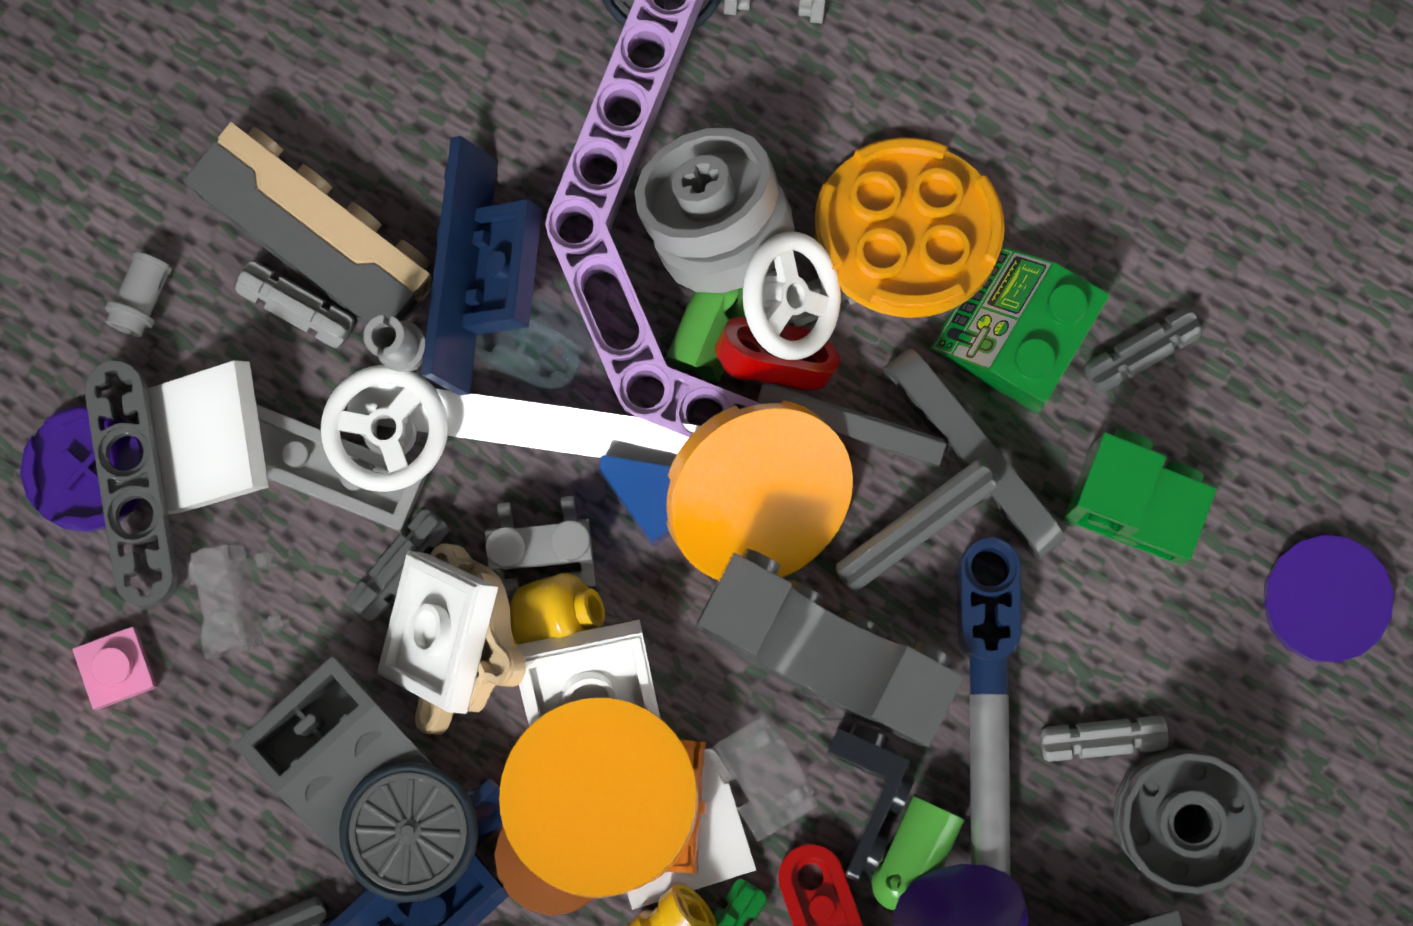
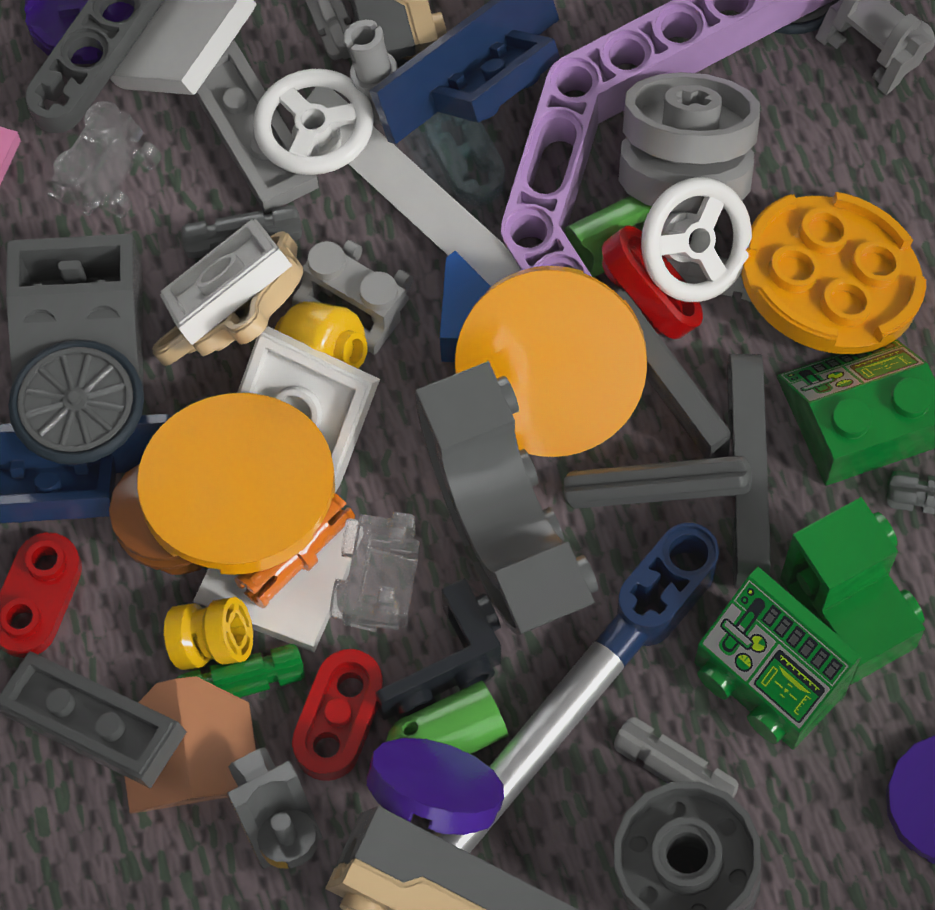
camera: 40 degrees right, 15 degrees down
(1125, 606) = (775, 661): none -> slope

